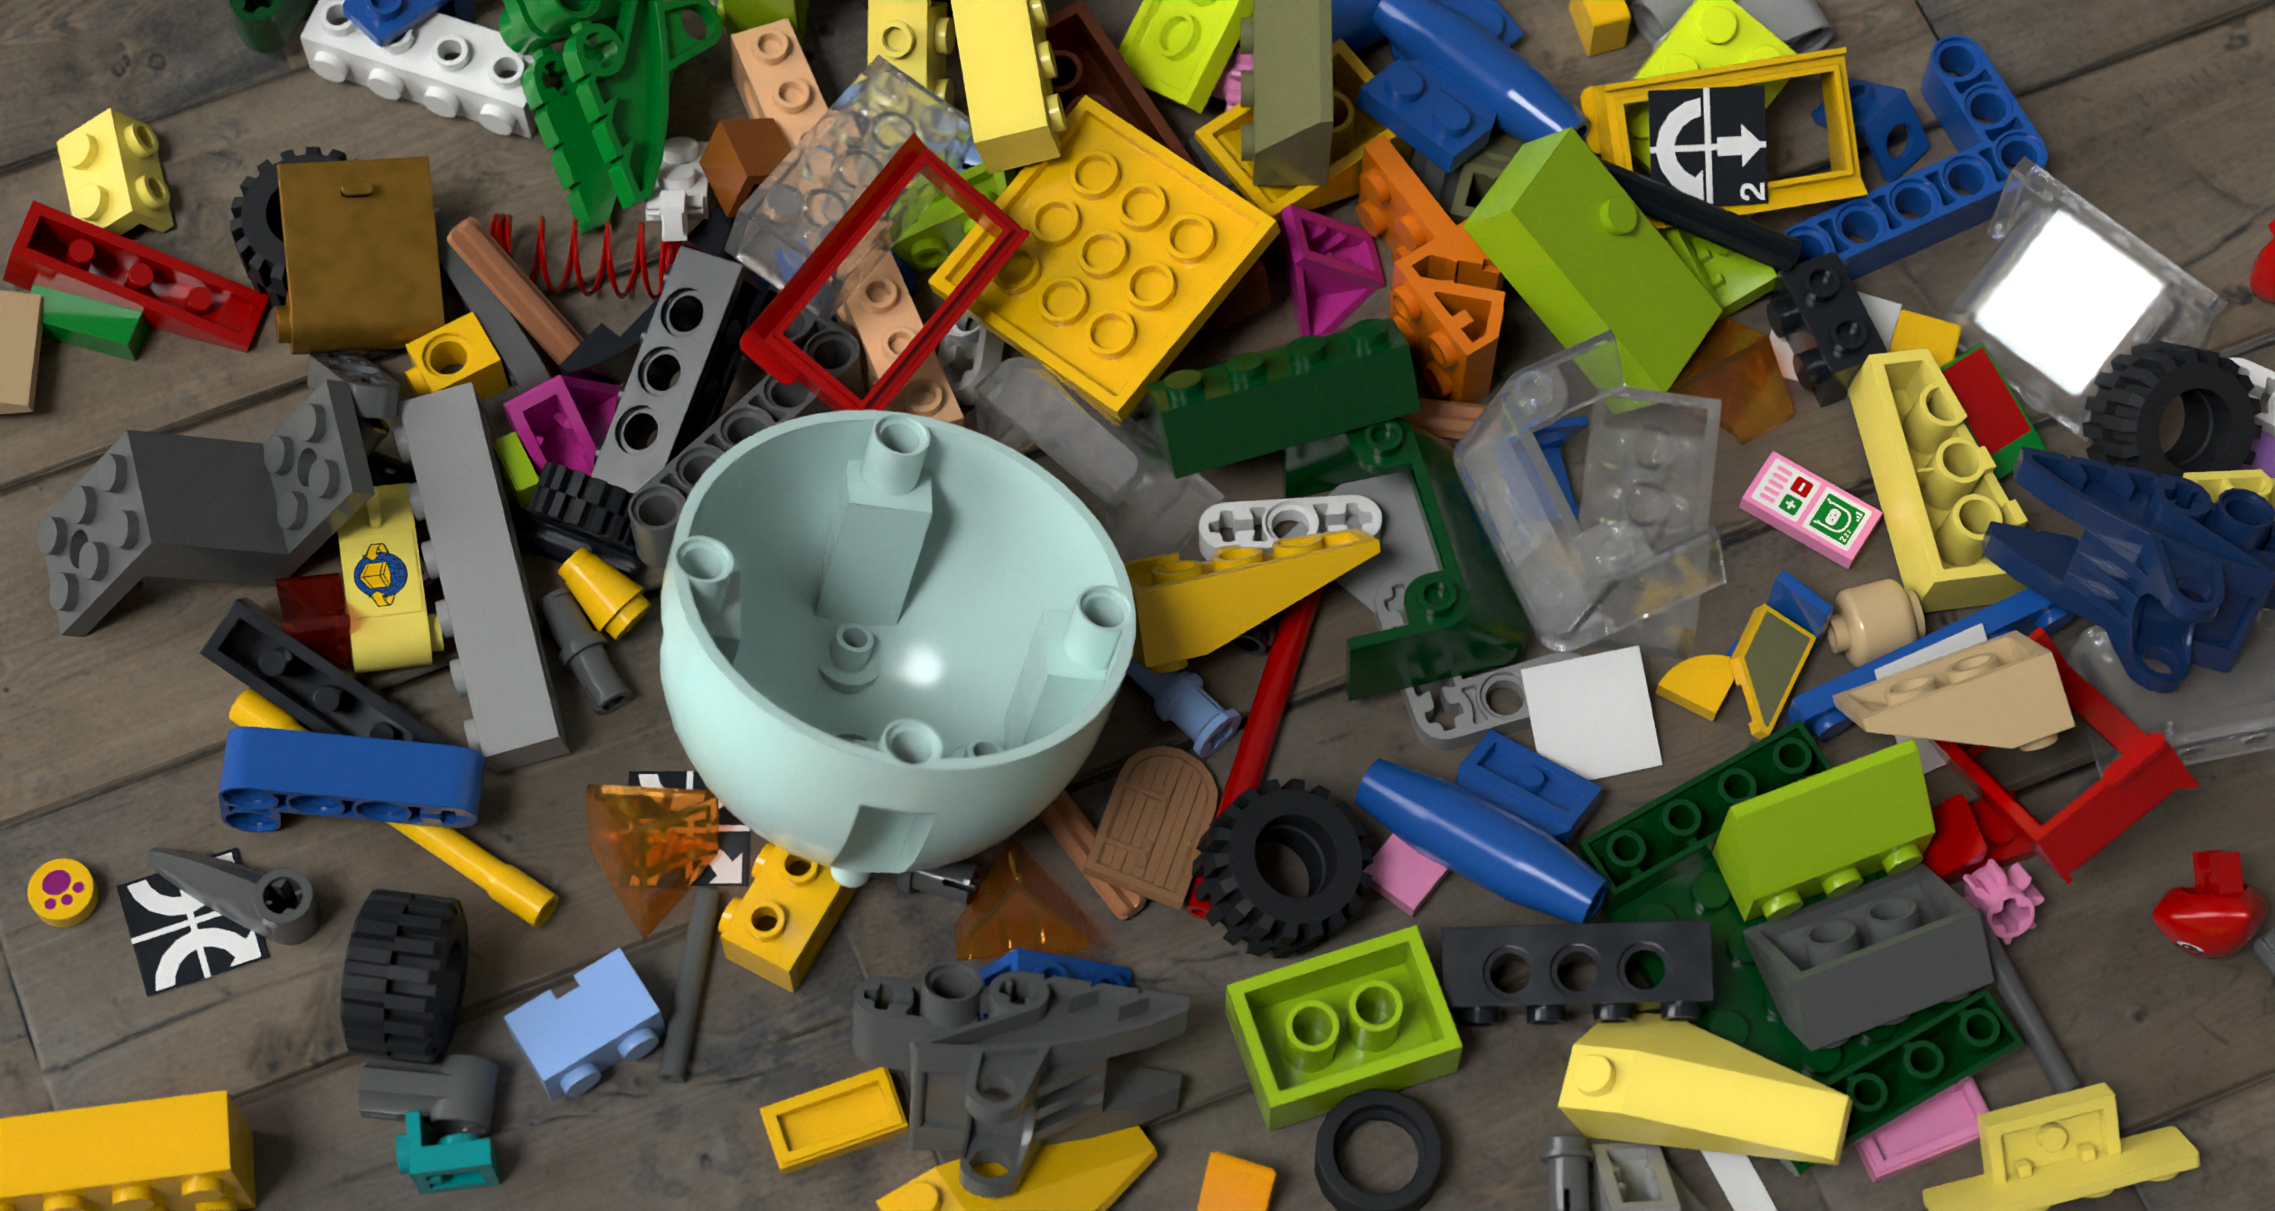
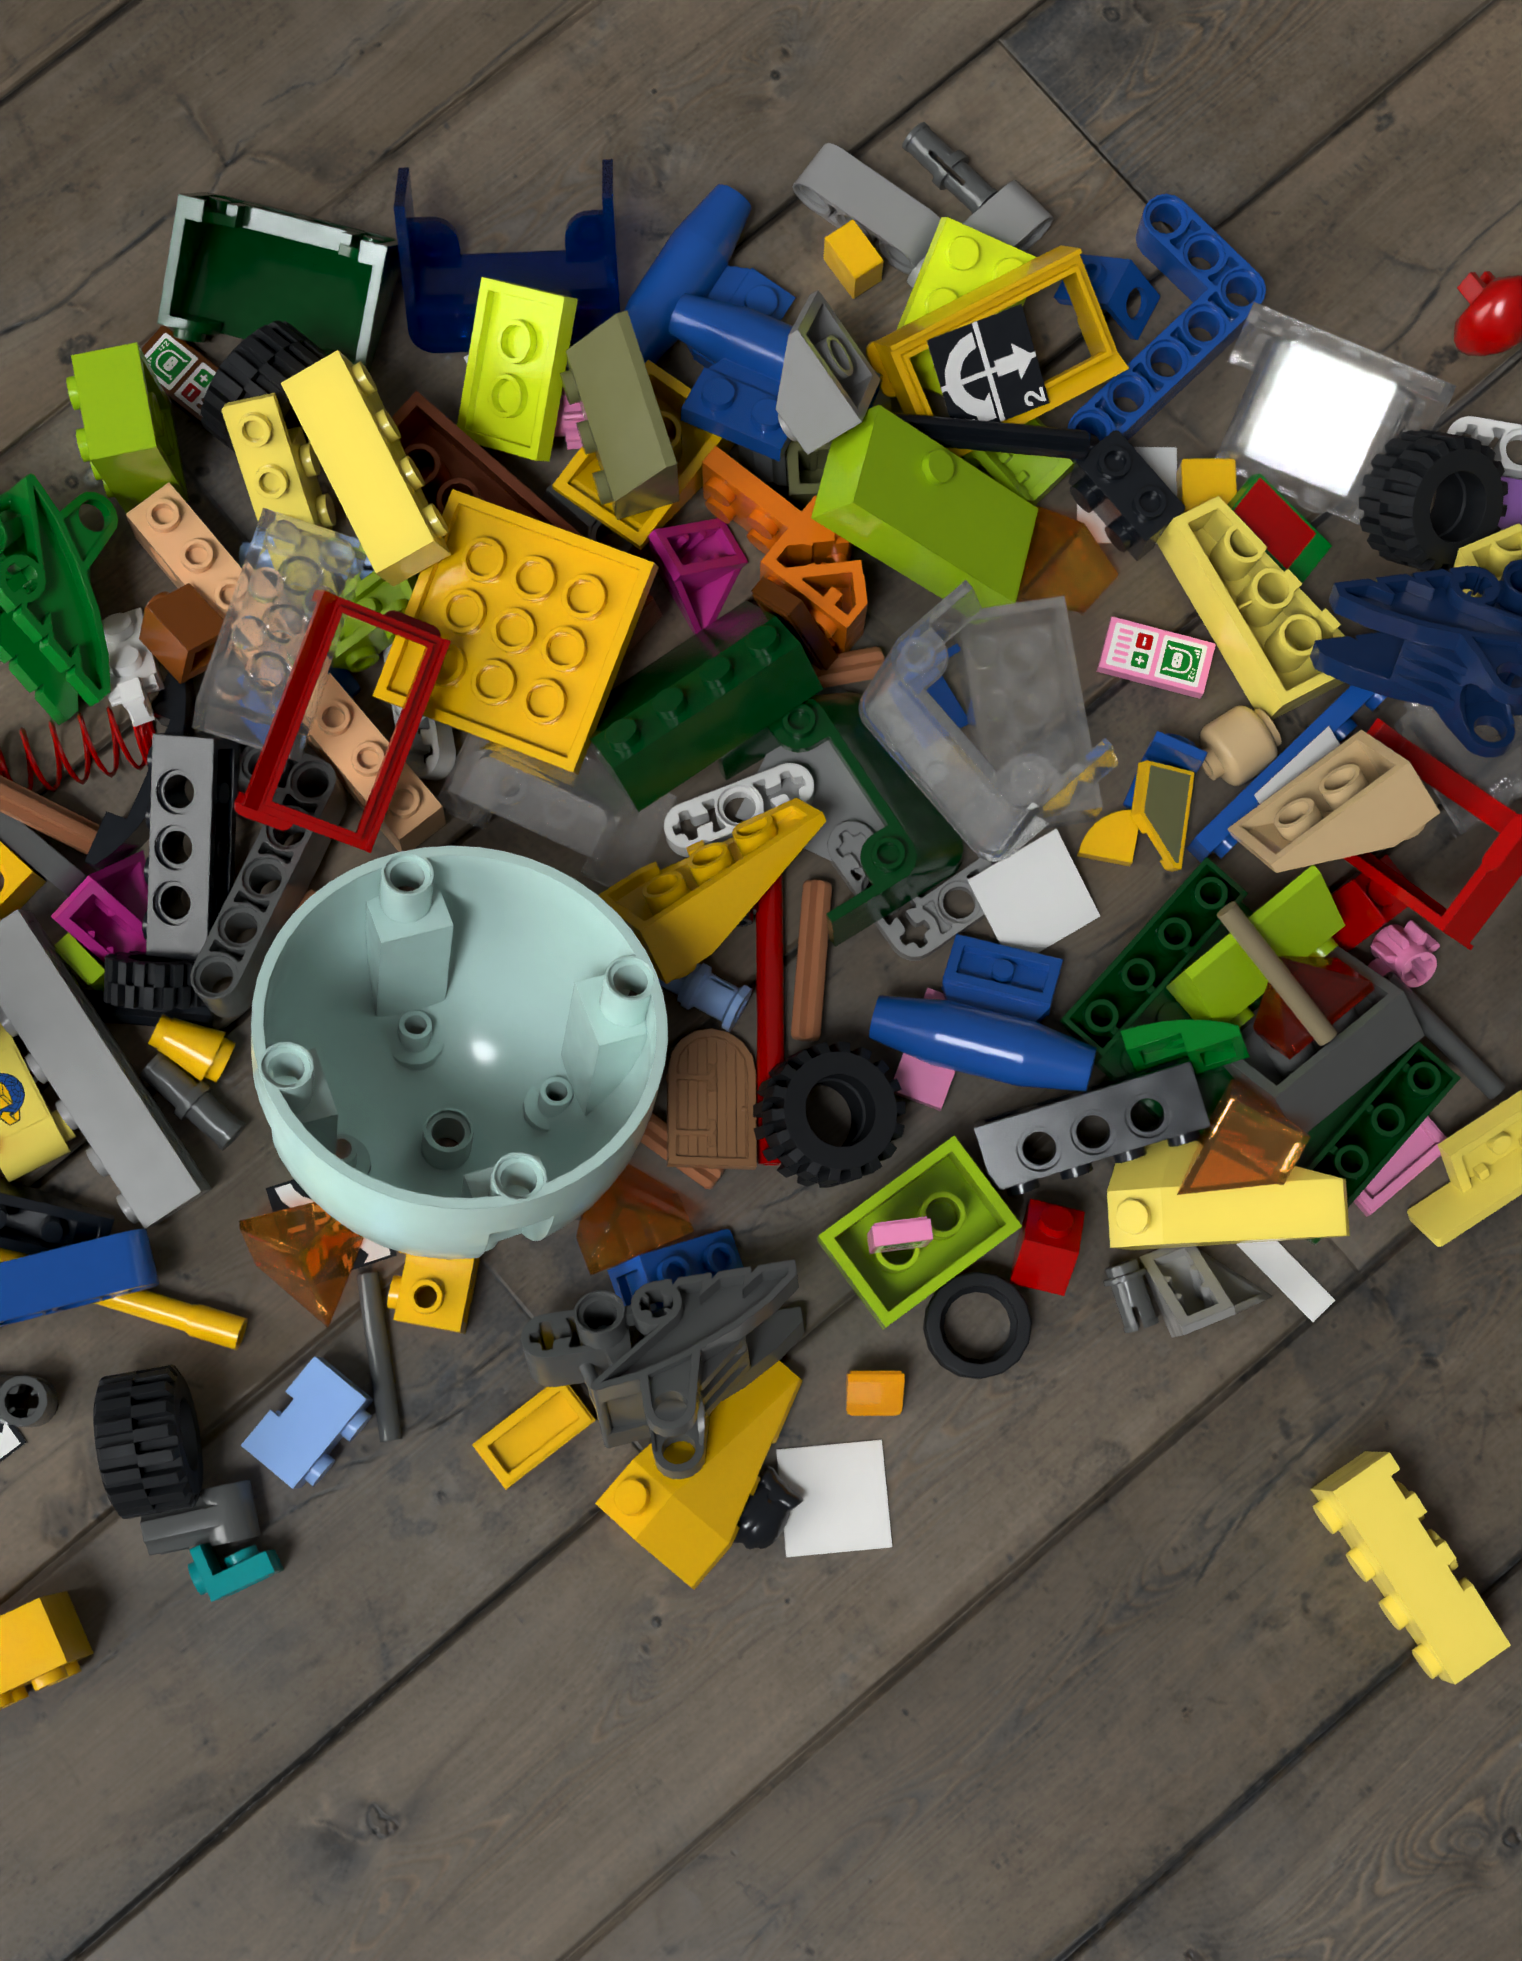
camera: 20 degrees left, 15 degrees up
(1316, 710) = (811, 961): none -> nougat axle
(1316, 993) = (899, 1235): none -> bright pink tile
(1413, 321) = (797, 620): none -> reddish brown tile
(1485, 1088) = (1047, 1247): none -> red brick
(1517, 85) = (823, 378): none -> light grey slope
(1738, 908) = (1203, 1041): none -> green slope
(1743, 1029) = (1243, 1145): none -> clear orange slope
(1836, 843) = (1277, 973): none -> dark tan bar
(1863, 895) = (1329, 984): none -> clear red slope

